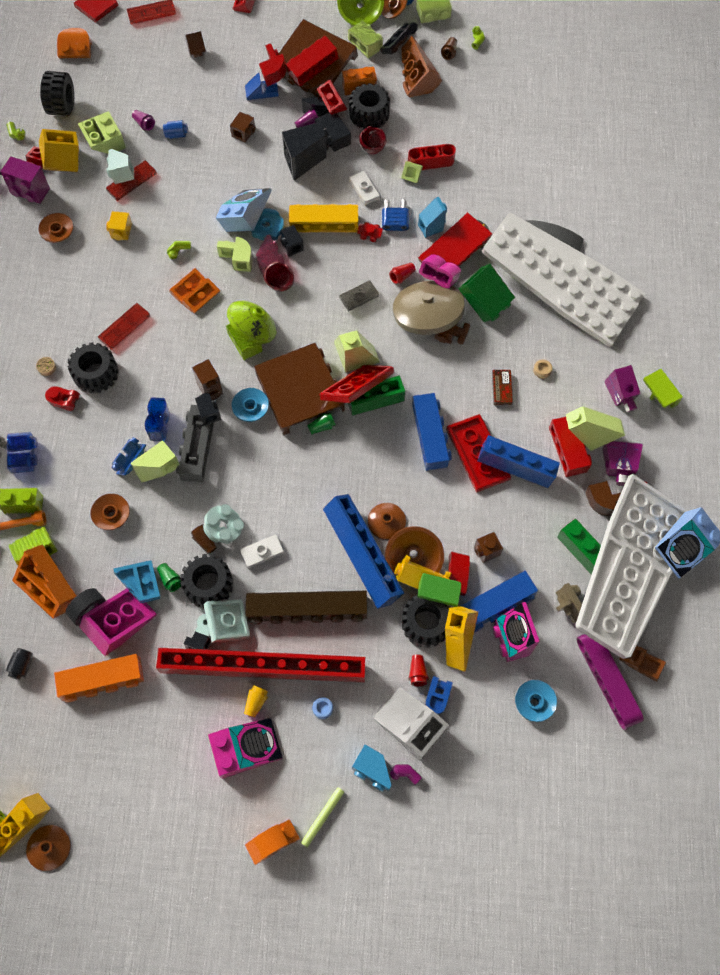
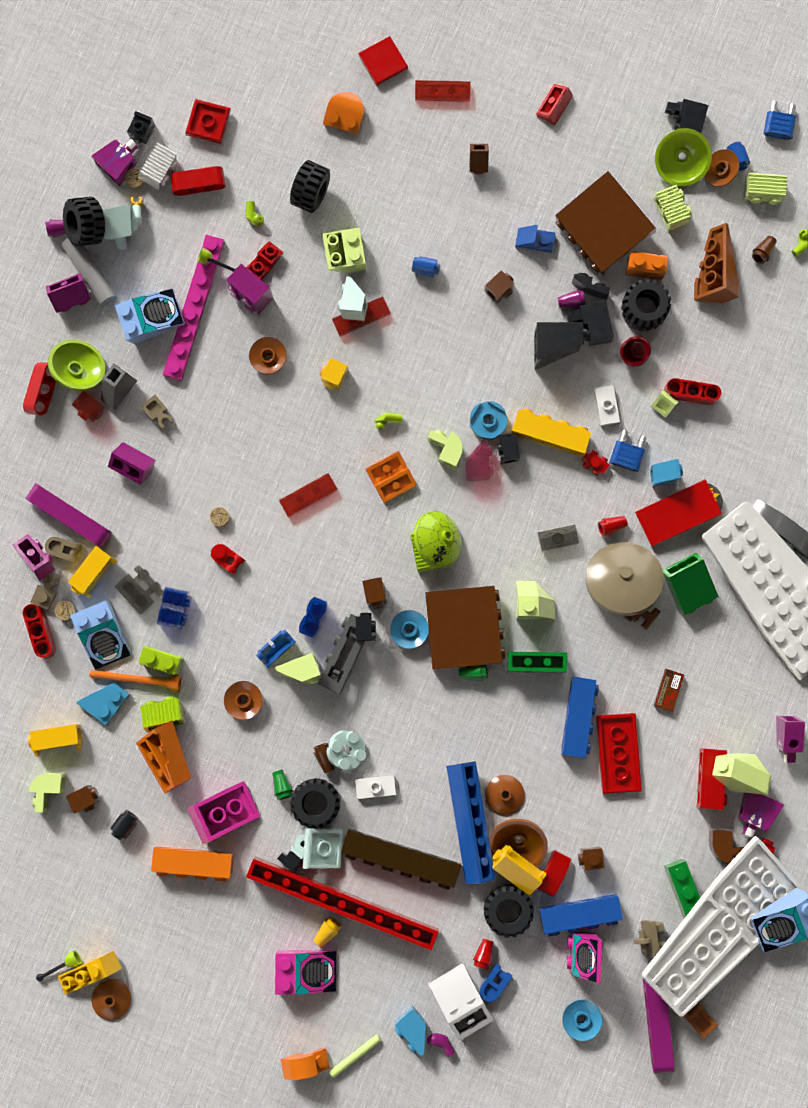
camera: 25 degrees right, 15 degrees up
(59, 150) = (294, 261): yellow slope -> none
(83, 603) = (197, 793): black tyre -> none
(90, 355) = (258, 523): black tyre -> none
(139, 580) = (253, 780): dark azure wing -> none
(143, 120) = (394, 242): magenta cone -> none
(243, 210) = (470, 396): light blue slope -> none
(273, 68) = (555, 228): red brick -> none
(279, 276) = (481, 493): dark red hair -> none
(312, 60) = (600, 232): red brick -> none
(322, 708) = (386, 958): light blue tile -> none
(331, 98) = (607, 285): red slope -> none
(356, 383) = (521, 649): red tile -> none
(398, 38) = (711, 218): black hinge -> none
(437, 269) = (650, 542): dark pink brick -> none
(439, 589) = (528, 892): bright green slope -> none
(459, 636) = (533, 939): yellow slope -> none
(518, 461) = (653, 781): blue brick -> none
(542, 369) = (718, 682): tan tile -> none

